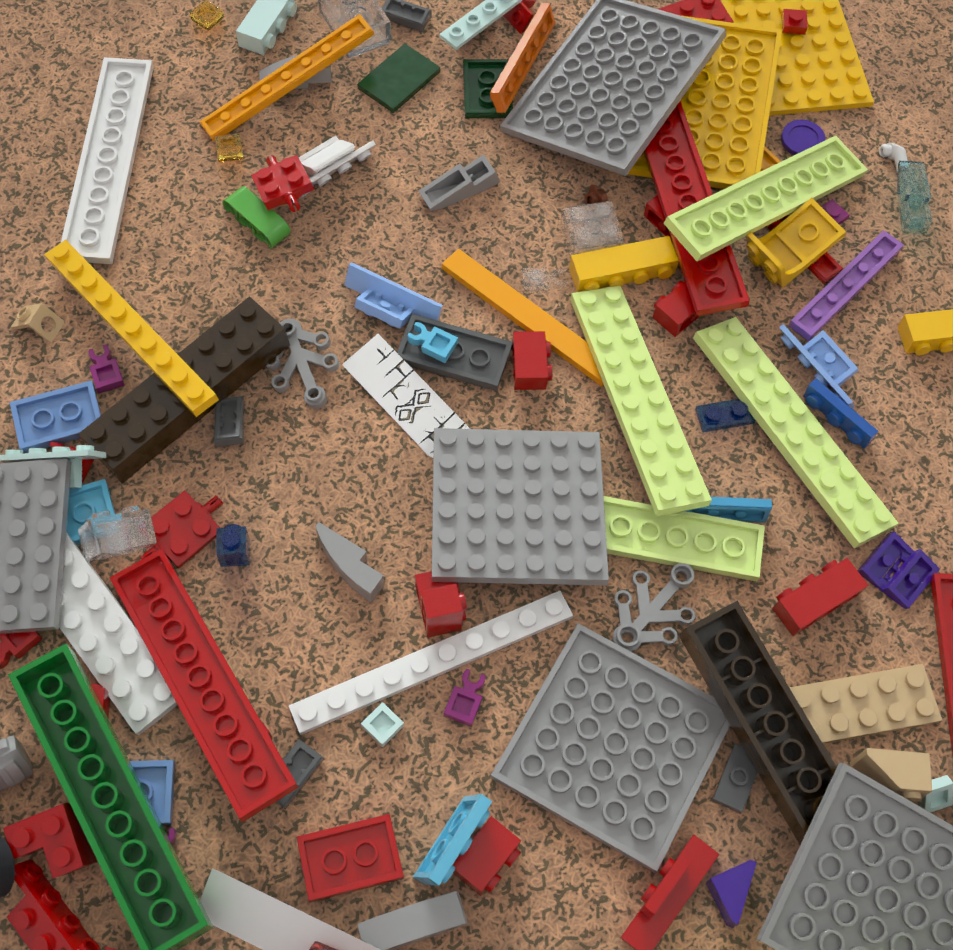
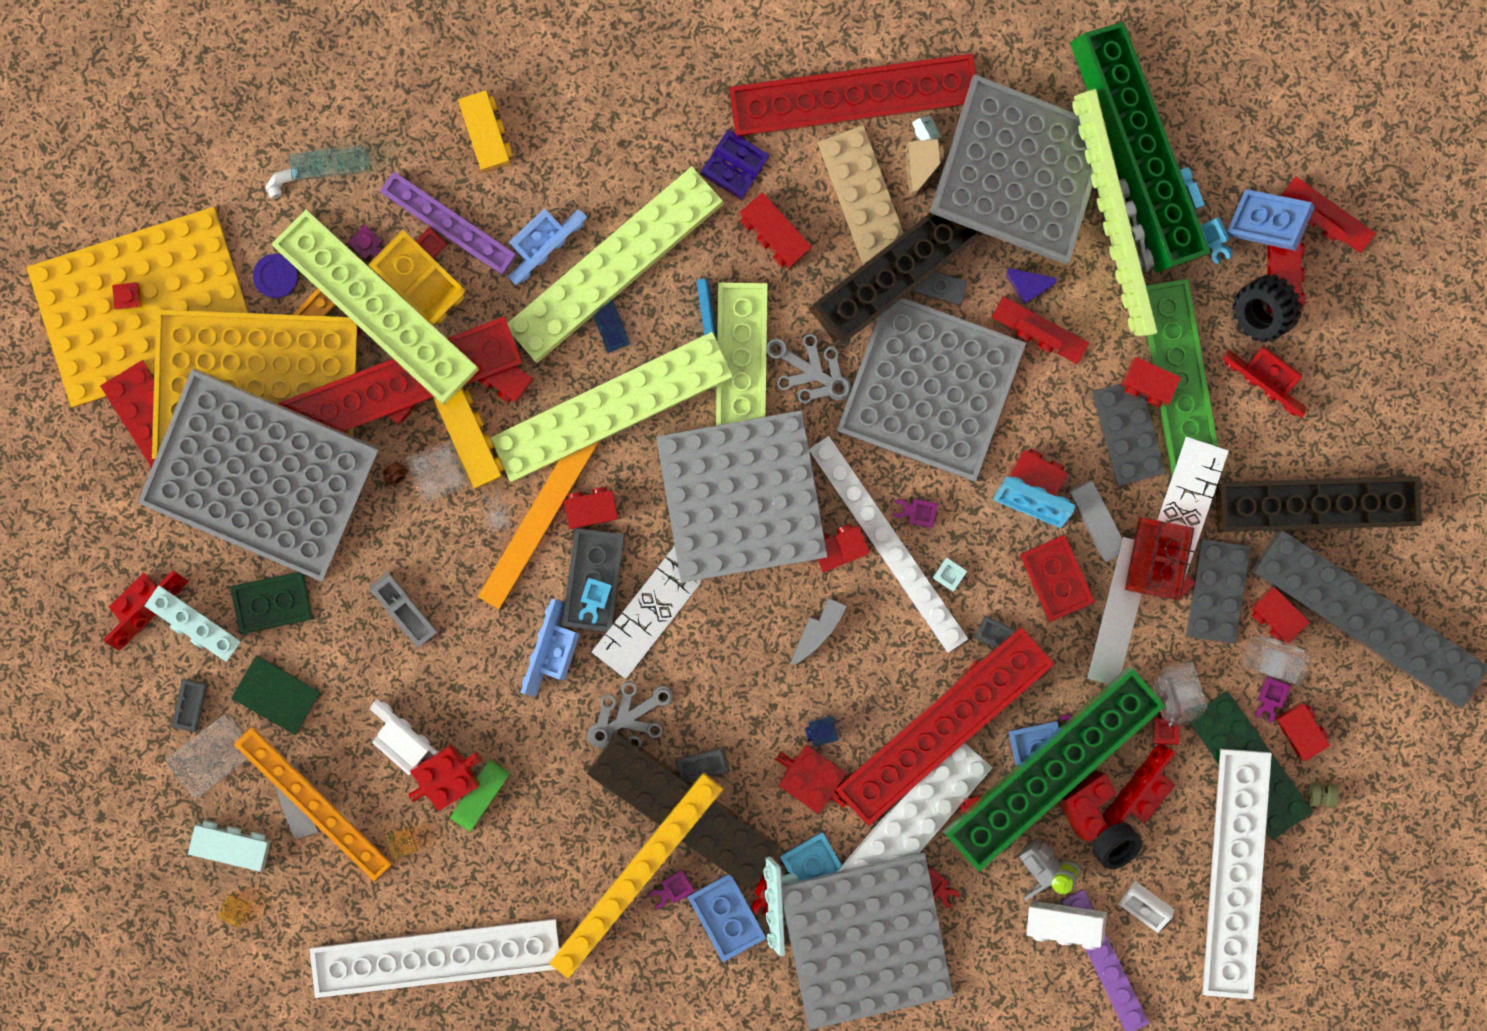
camera: 100 degrees left, 25 degrees up
(32, 316) = (631, 970): tan bracket -> none
(117, 534) = (838, 826): clear brick -> none
(522, 58) = (232, 571): orange plate -> none
(839, 414) = (594, 224): blue plate -> none

